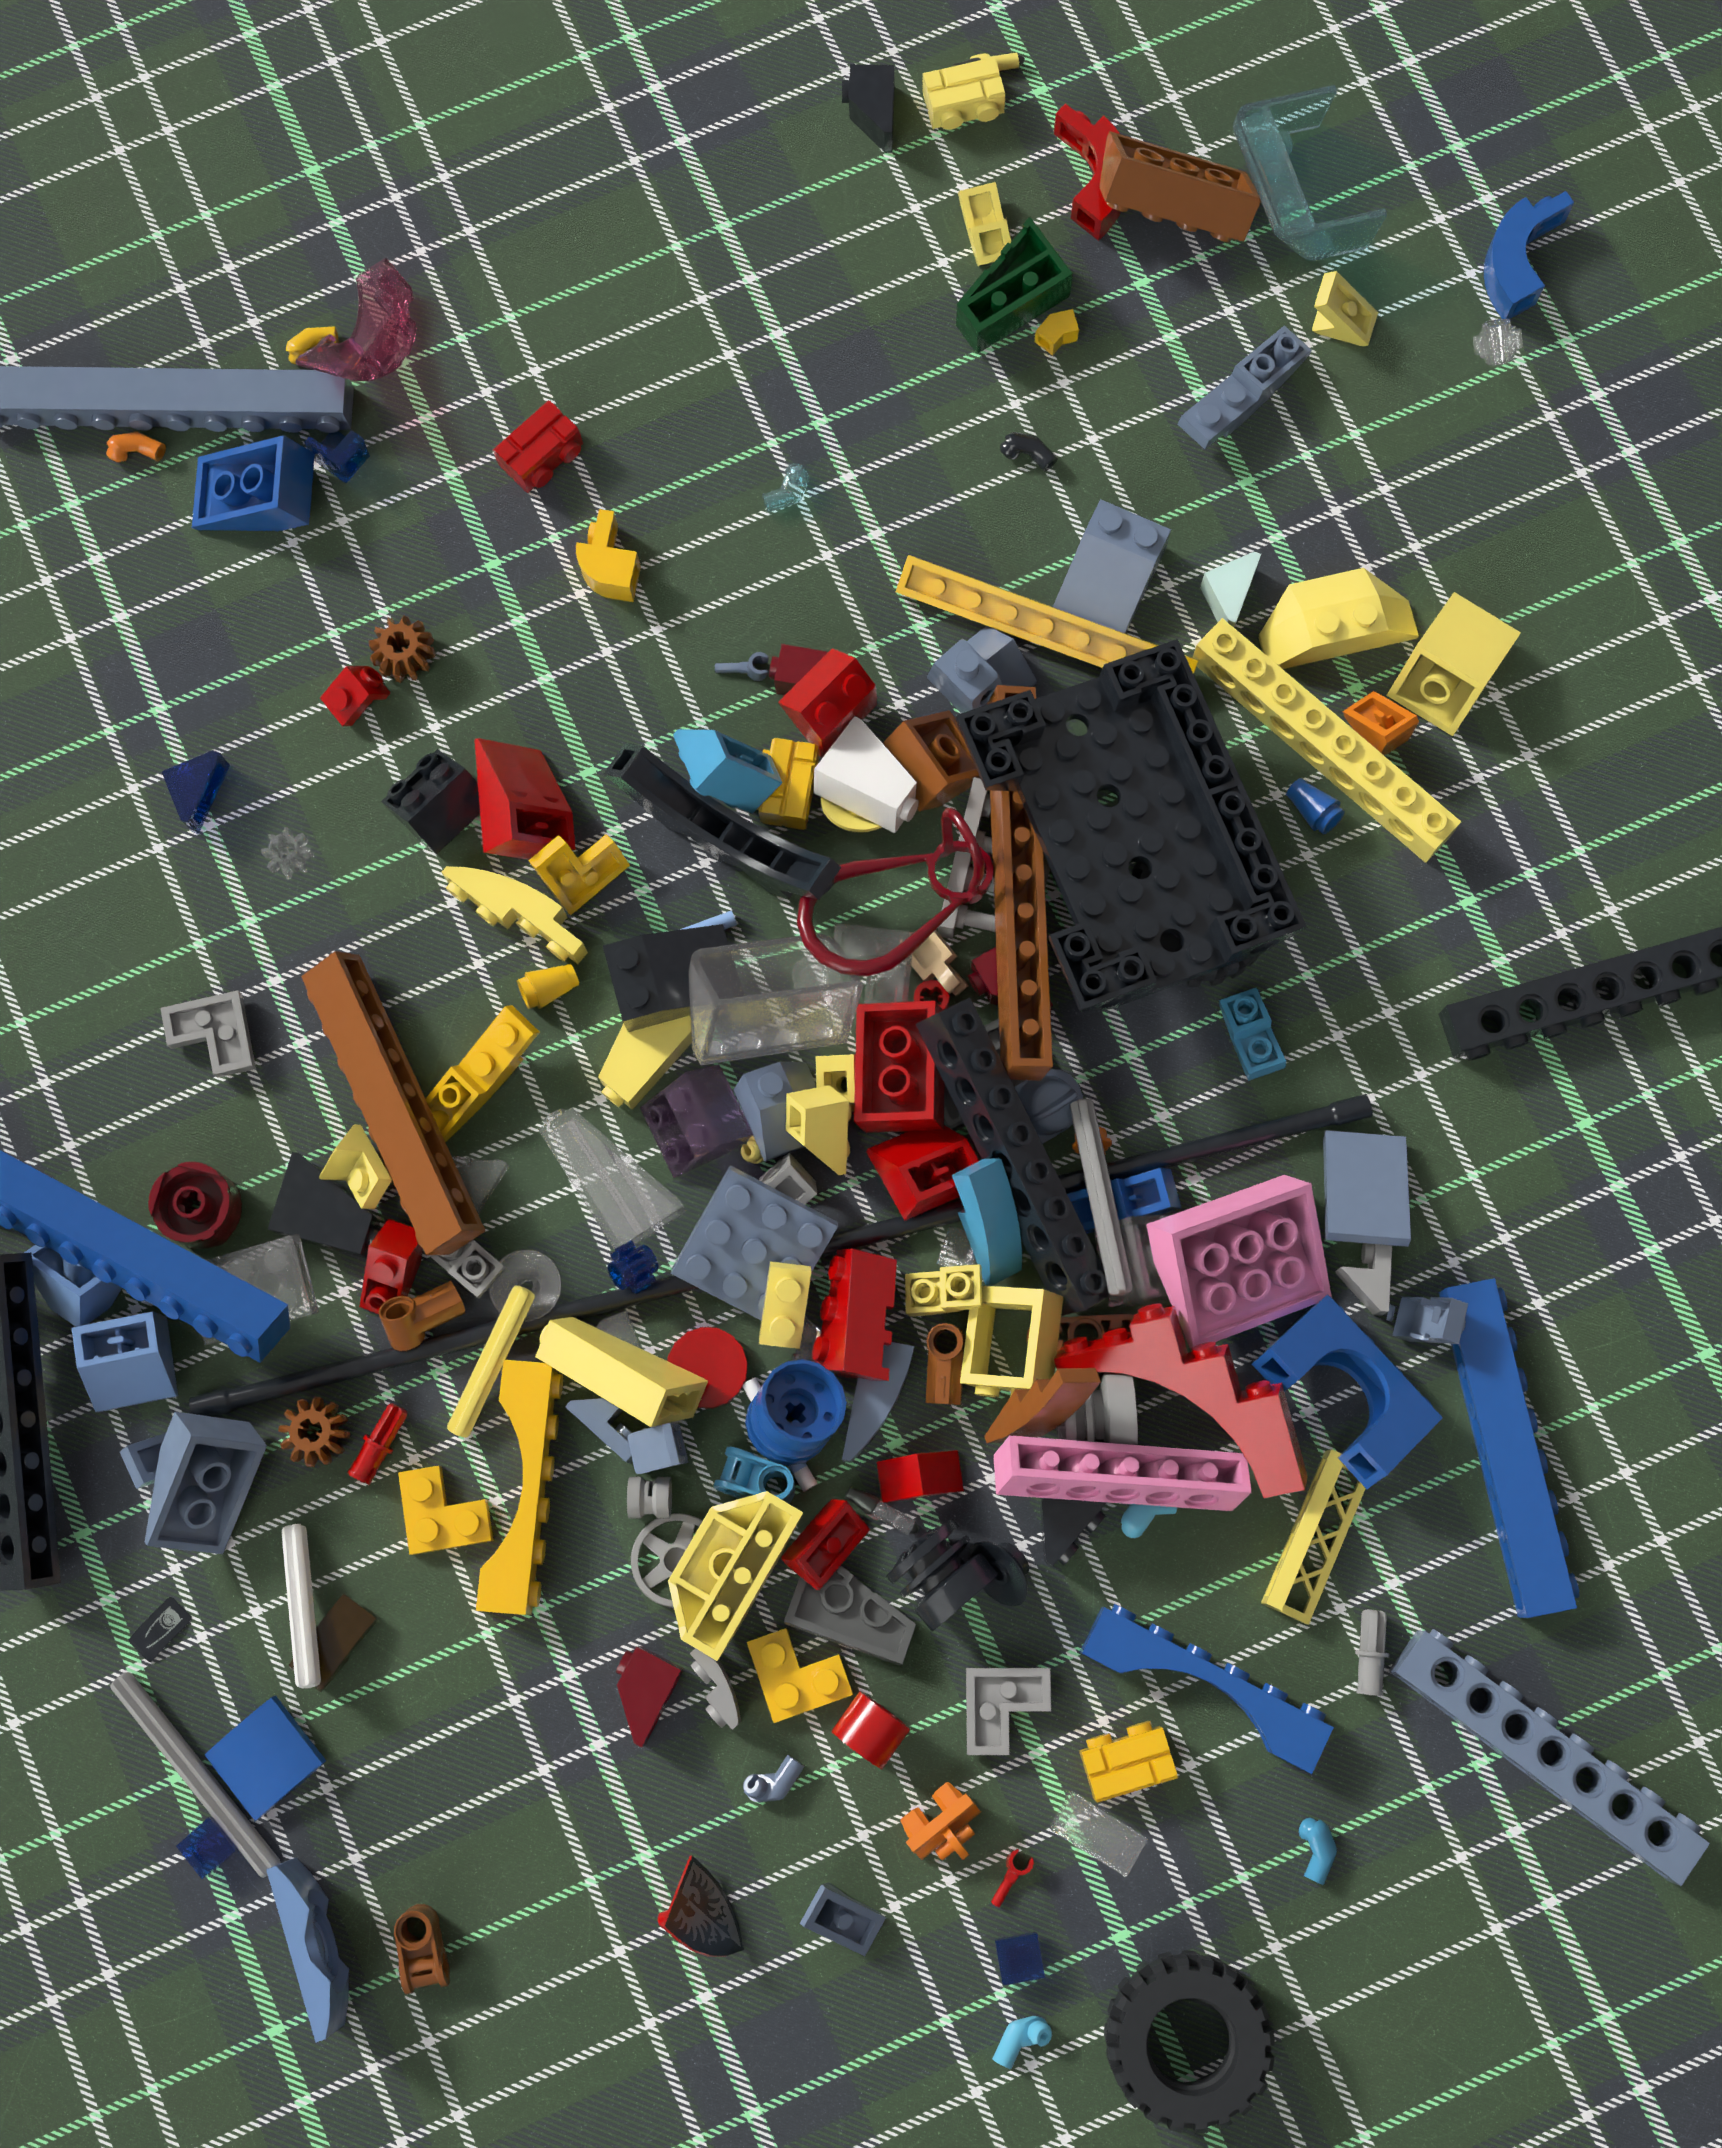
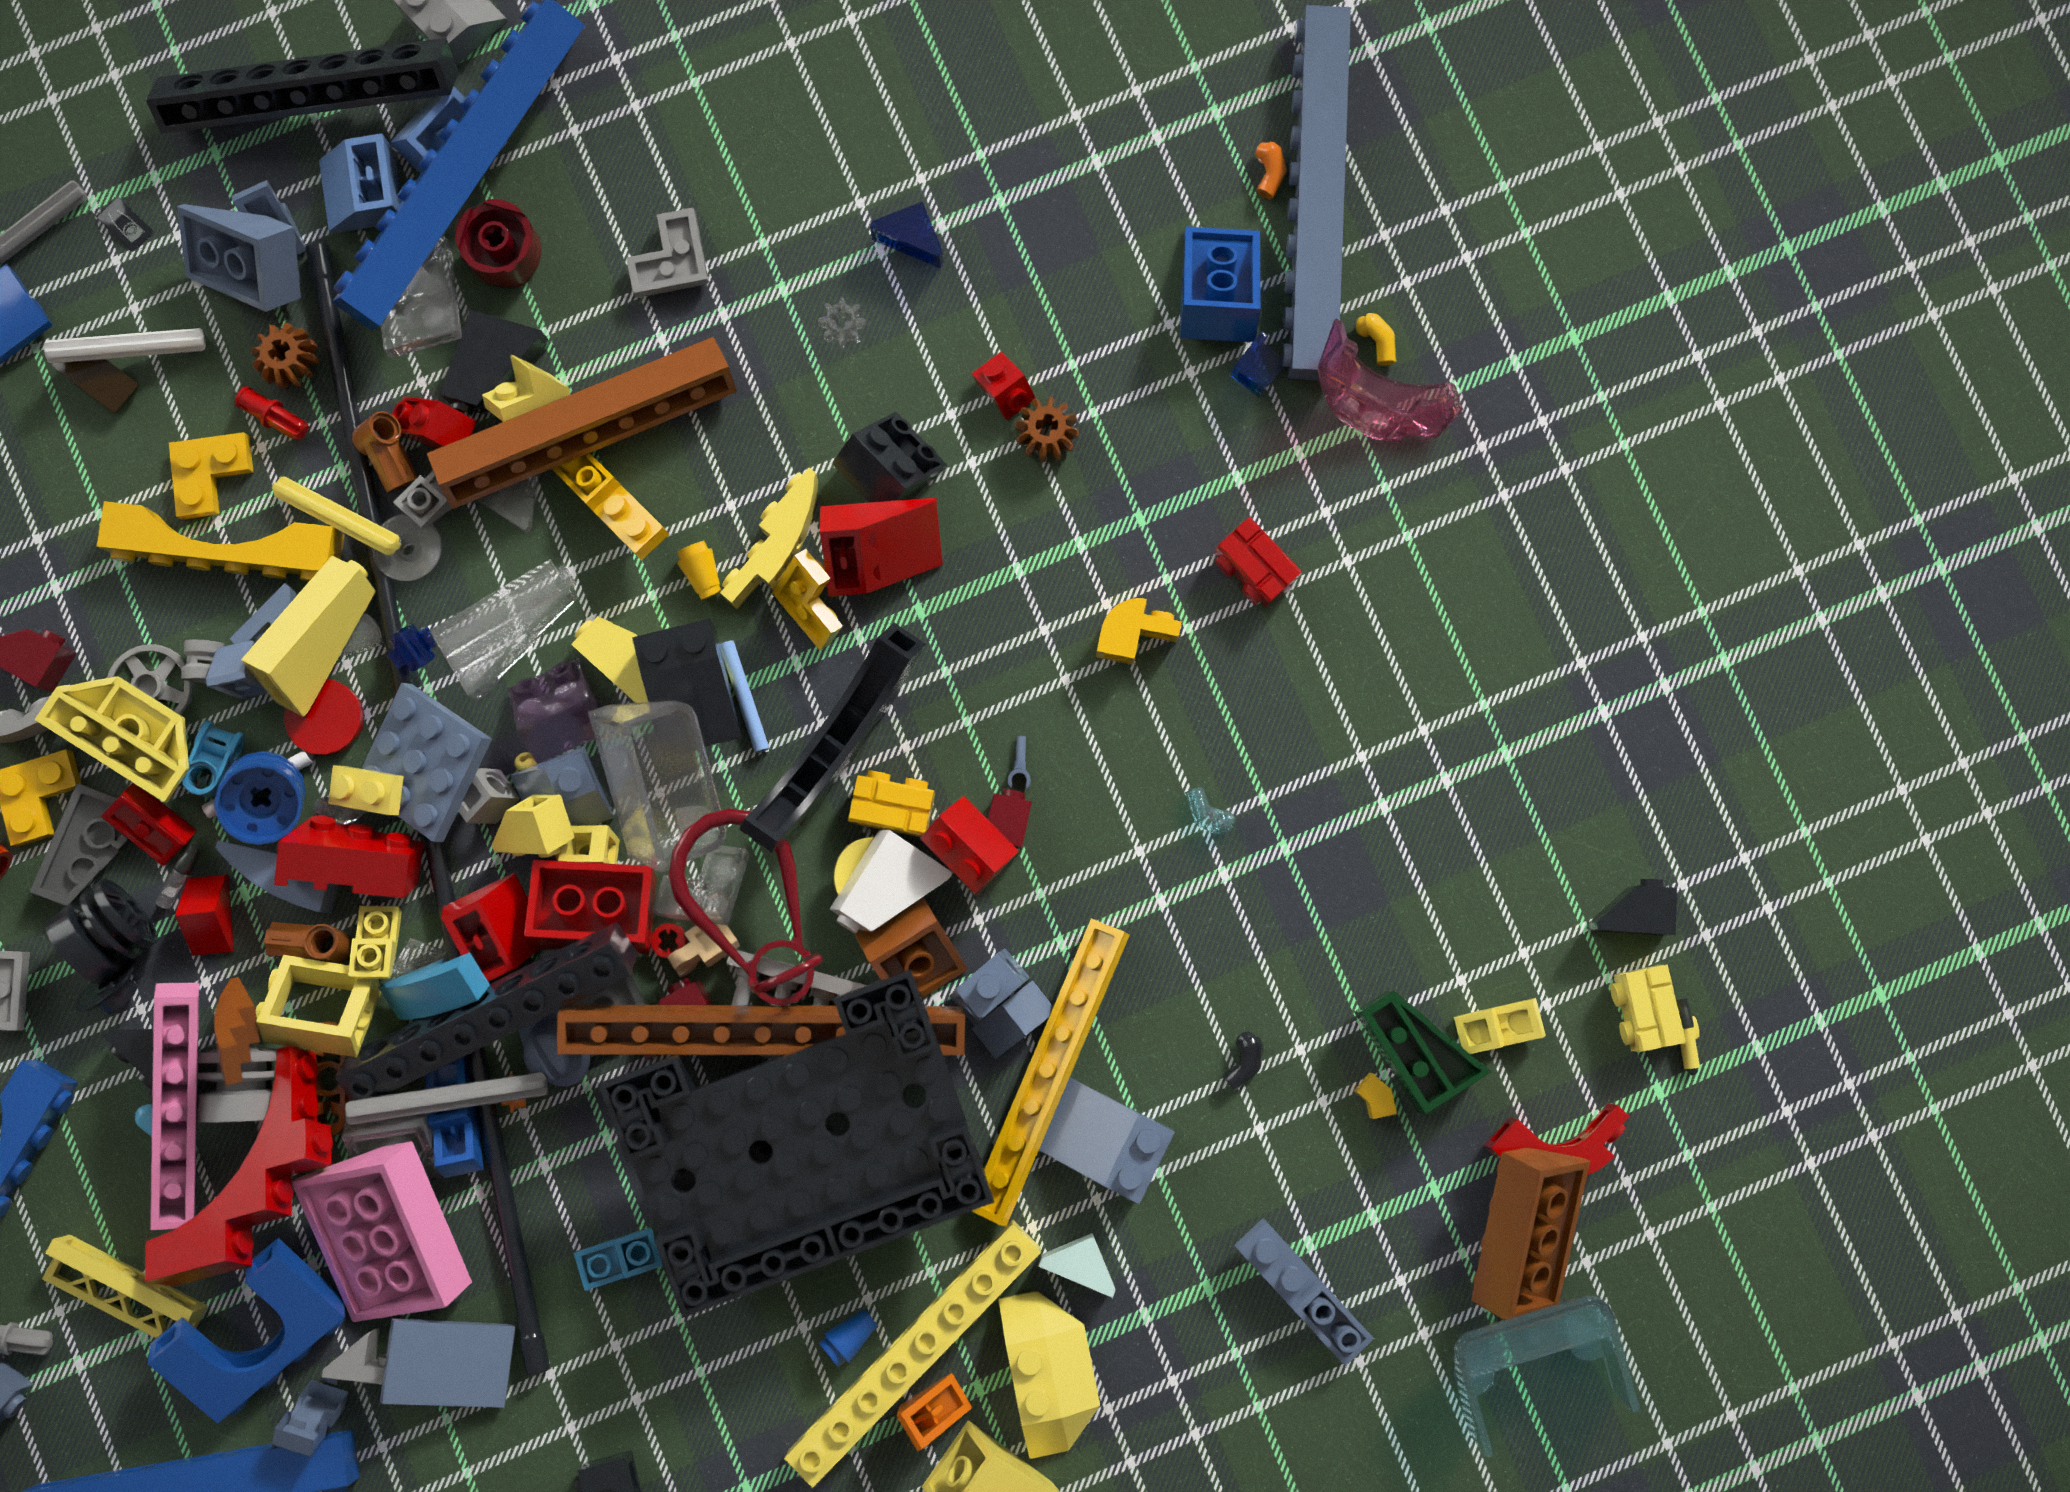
camera: 85 degrees right, 5 degrees up
(727, 768) = (896, 743): dark azure slope -> none
(1343, 312) = (1388, 1404): light yellow slope -> none

